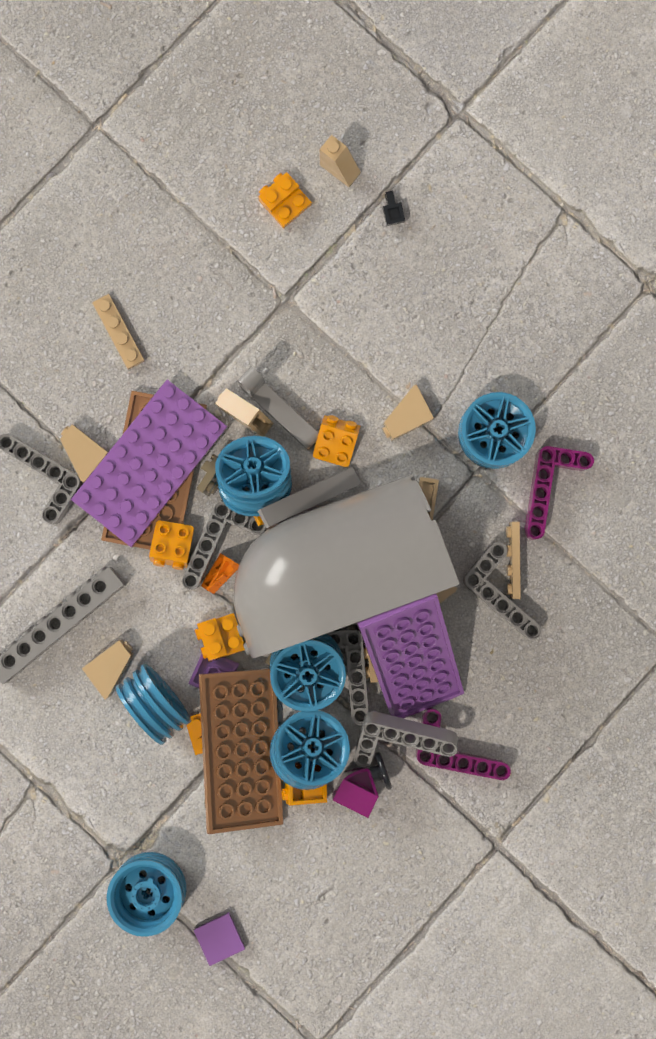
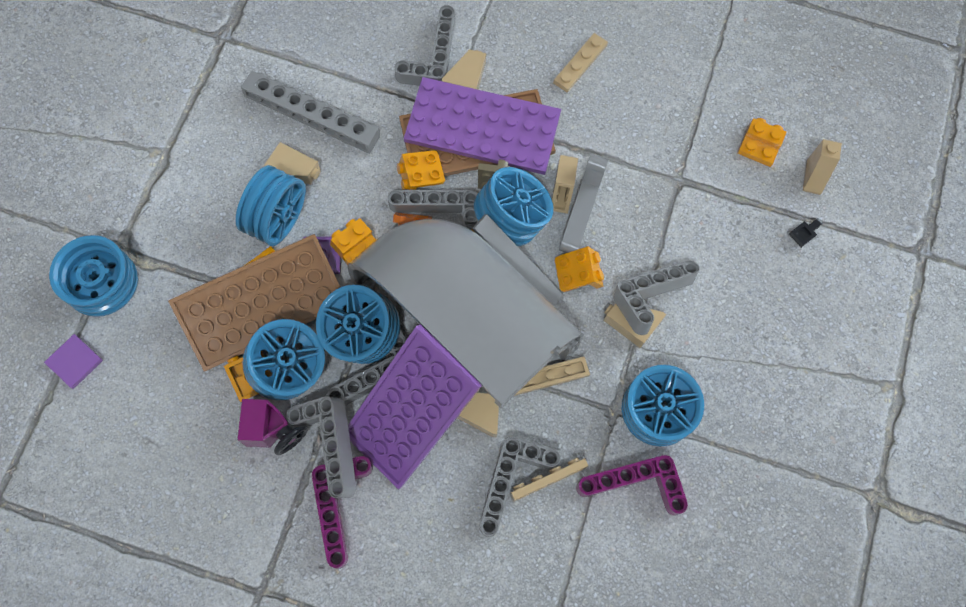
camera: 65 degrees right, 15 degrees down
(386, 386) = (632, 292): none -> light grey beam

